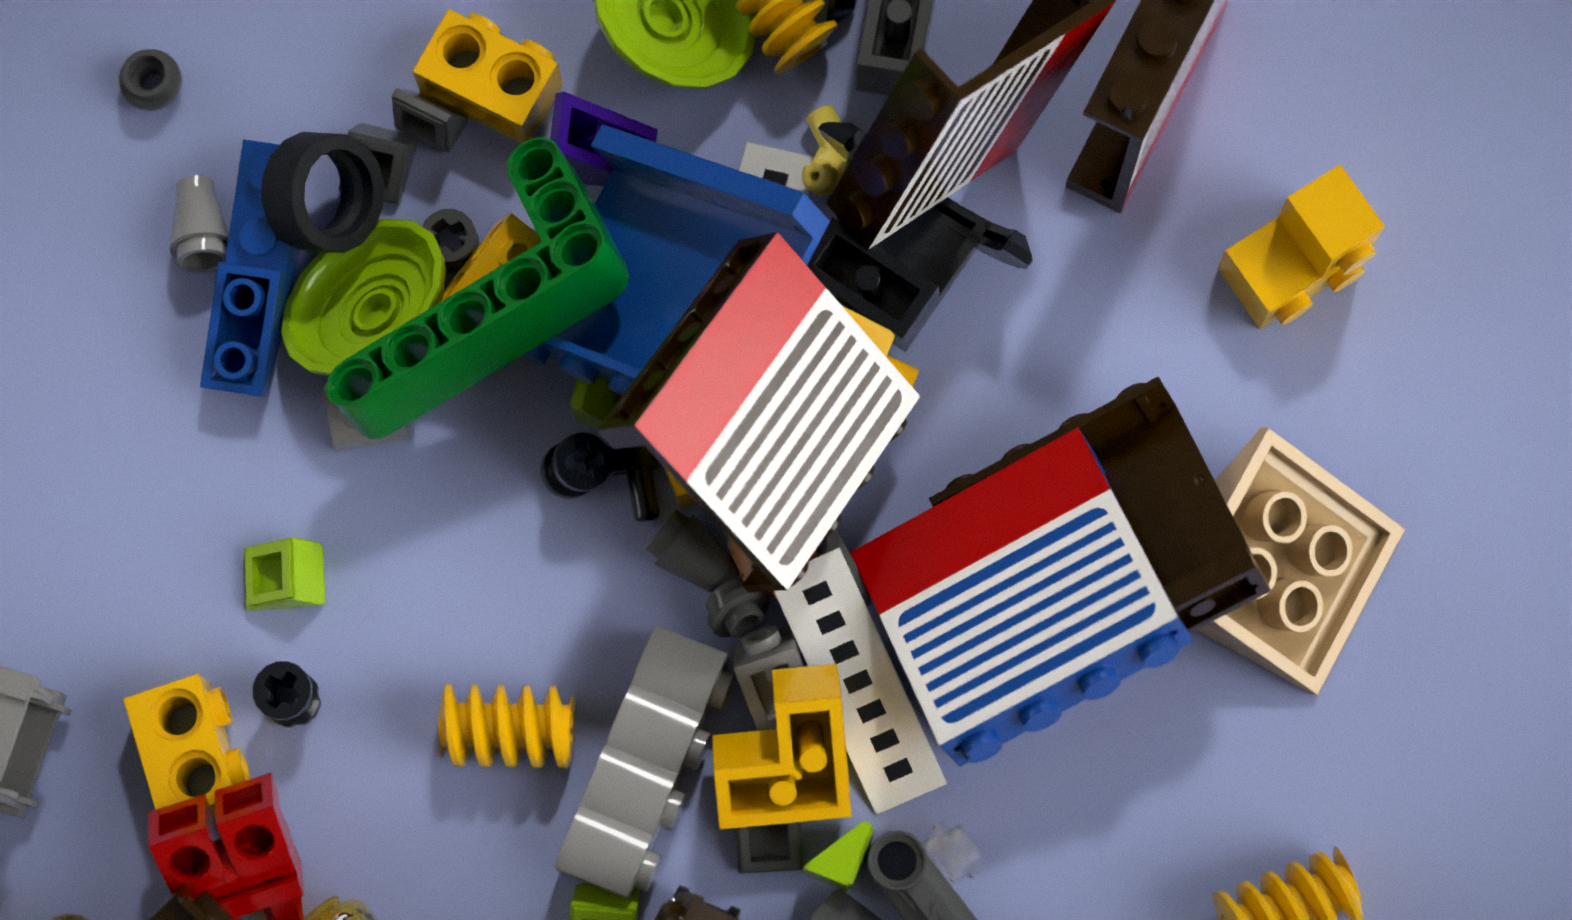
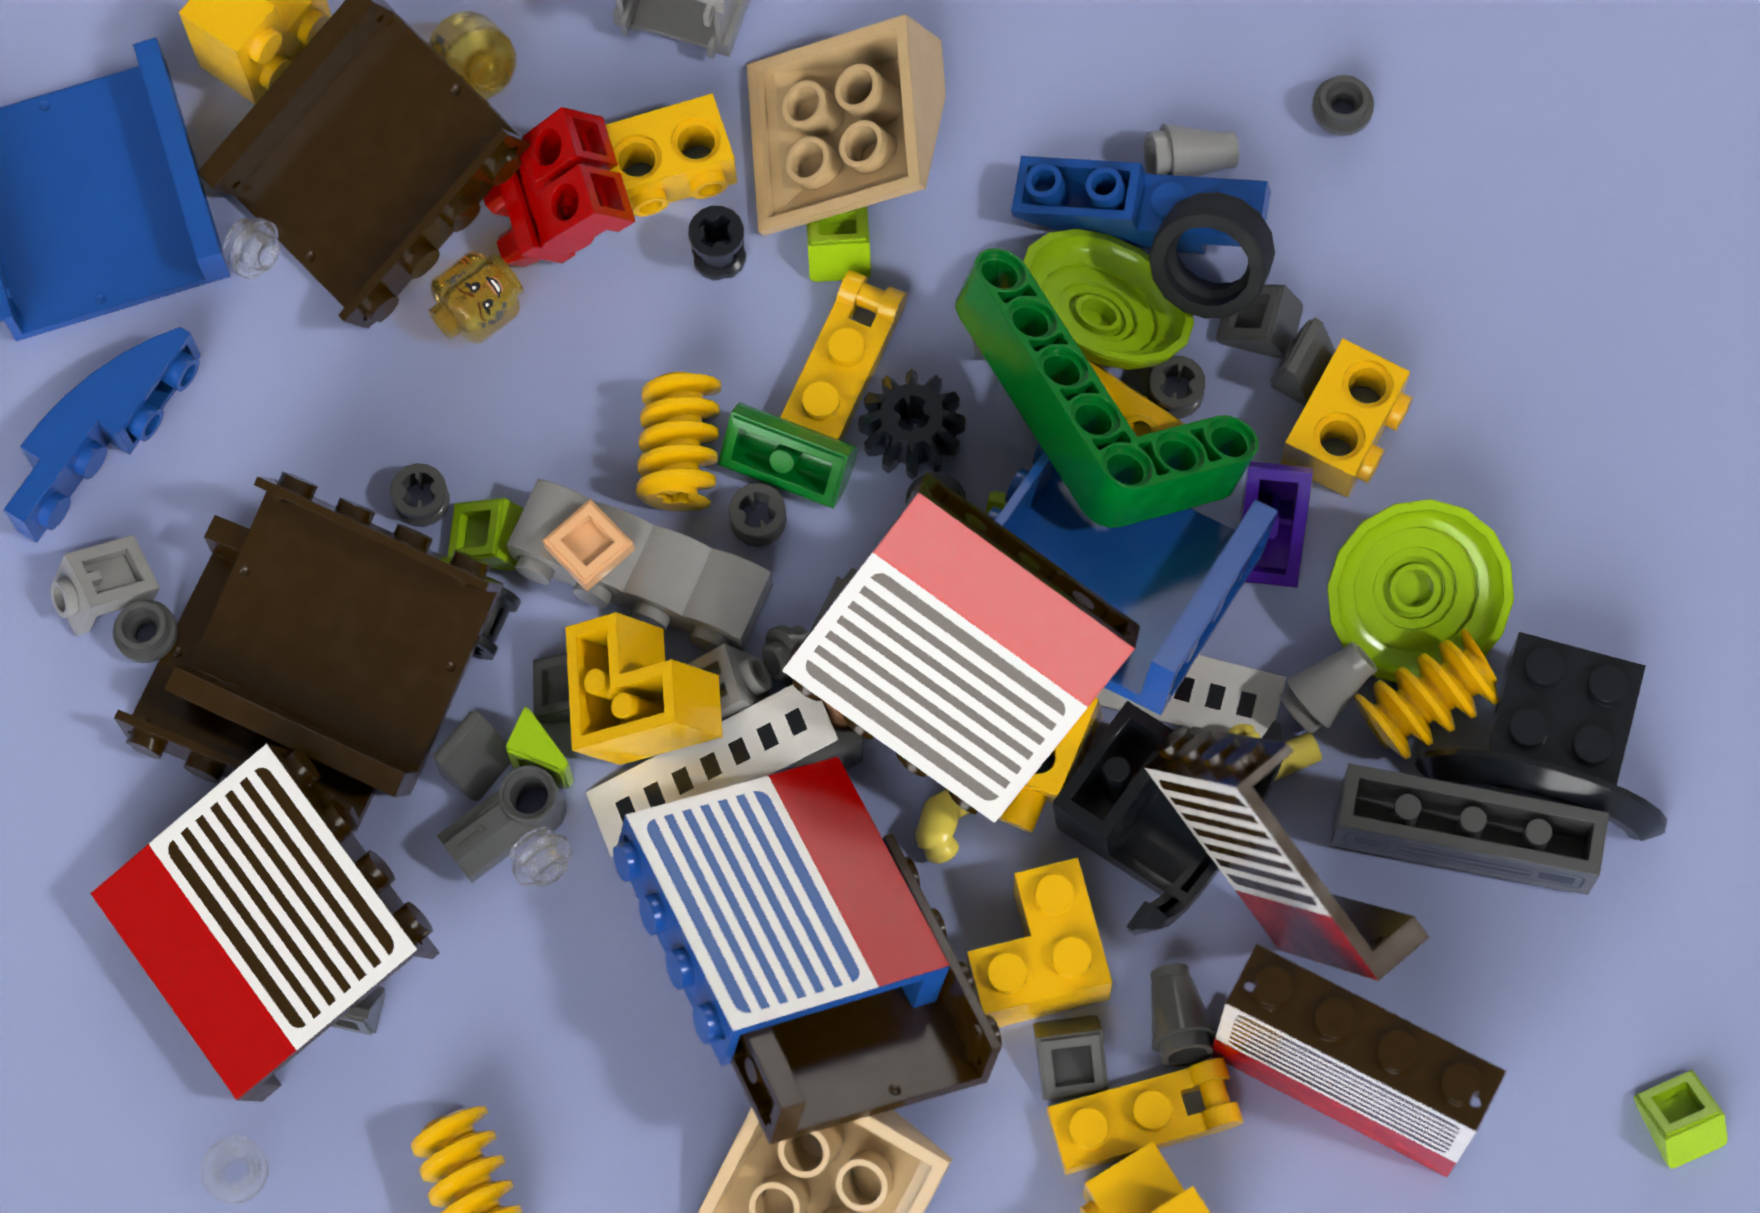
camera: 90 degrees right, 5 degrees down
(159, 567) = (844, 122): none -> tan slope
(417, 567) = (844, 357): none -> yellow plate
(486, 471) = (906, 402): none -> black gear
(522, 617) = (787, 455): none -> green brick
(576, 630) = (748, 496): none -> dark grey bush
(633, 807) = (588, 545): none -> light nougat tile
(767, 95) = (1327, 687): none -> light grey cone
(910, 462) = (938, 826): none -> light yellow arm
(1034, 341) = (1056, 962): none -> yellow brick
(1092, 235) = (1179, 1018): none -> dark grey cone
(1129, 337) = (1070, 1057): none -> dark grey slope
(1187, 272) = (1128, 1117): none -> yellow plate

